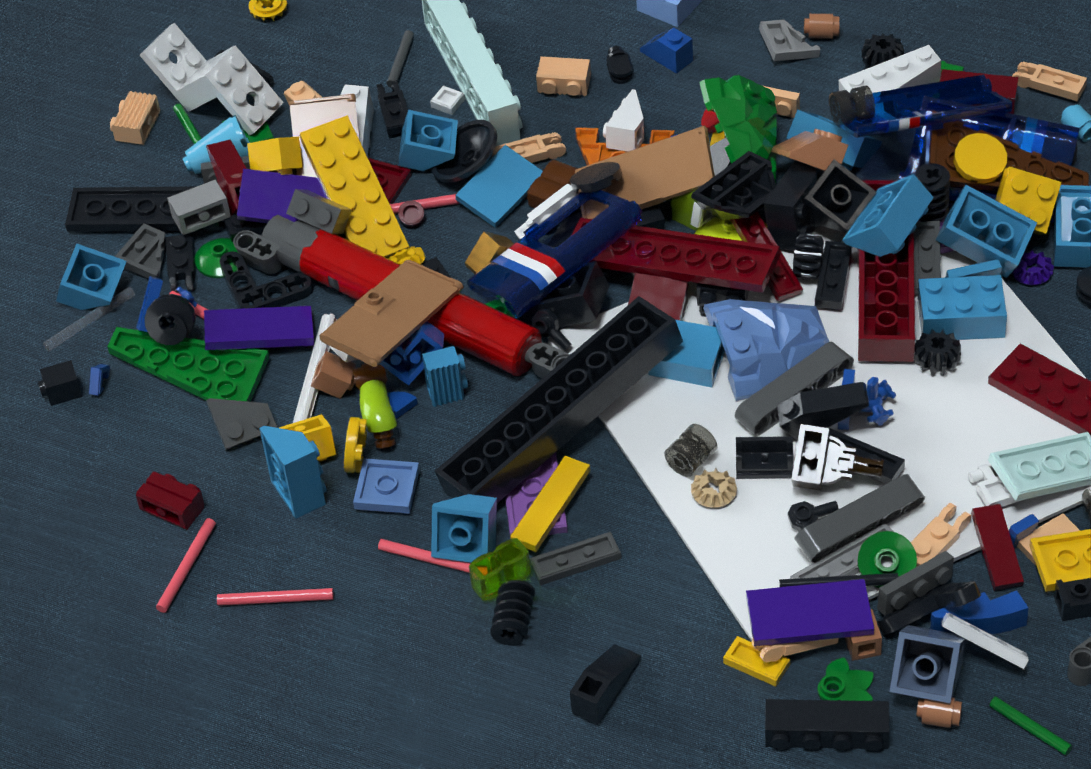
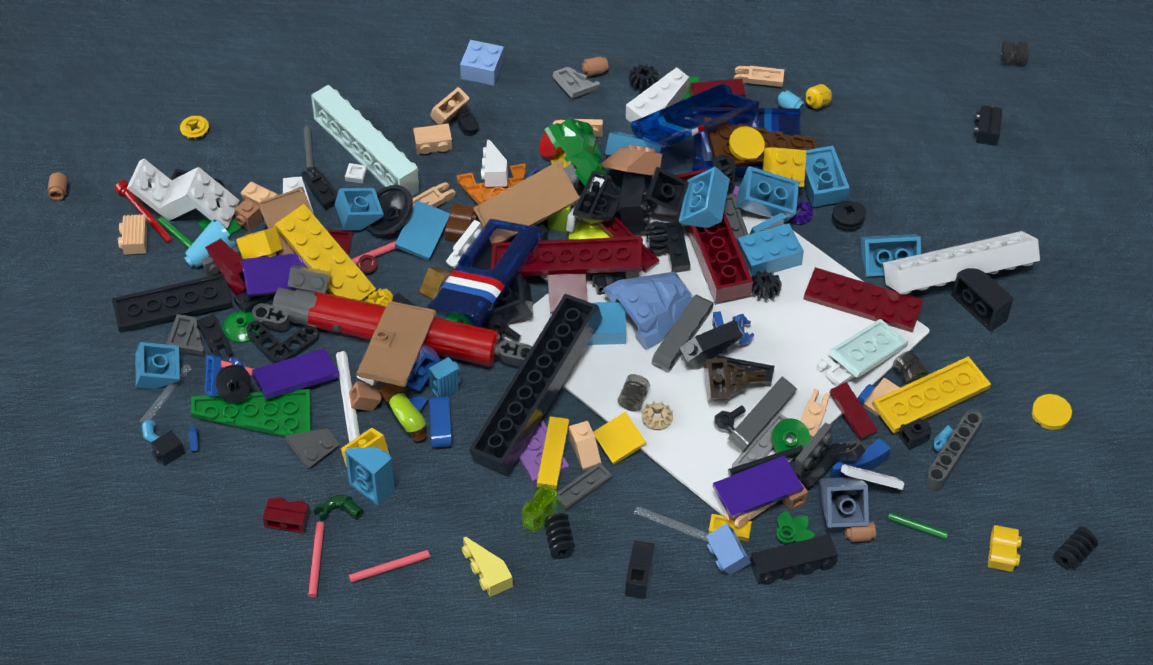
camera: 25 degrees left, 5 degrees up
(48, 354) = (148, 430): none -> dark azure arm
(69, 42) = (57, 186): none -> nougat brick
(162, 97) = (121, 189): none -> red piece
(199, 207) = (216, 293): light grey brick -> none
(247, 499) = (341, 501): none -> dark green piece
(280, 120) = (248, 214): none -> nougat brick
(354, 445) = (402, 446): yellow tile -> none
(386, 486) = (434, 467): medium blue plate -> none
(402, 632) = (491, 569): none -> light yellow slope
(419, 429) = (440, 421): none -> blue beam
(420, 554) = (484, 510): coral bar -> none
(464, 527) = (506, 486): dark azure slope -> none
(596, 177) = (495, 211): black tile -> none
(597, 503) = (584, 445): none -> light nougat slope
(598, 39) = (449, 106): none -> light nougat brick
(649, 506) = (619, 438): none -> yellow tile
(670, 49) = (497, 103): blue slope -> none
(679, 637) = (671, 523): none -> clear bar
(736, 687) = (727, 549): none -> medium blue brick
(764, 457) = (683, 386): black hinge -> none
(856, 104) = (650, 124): clear smoke wheel -> none

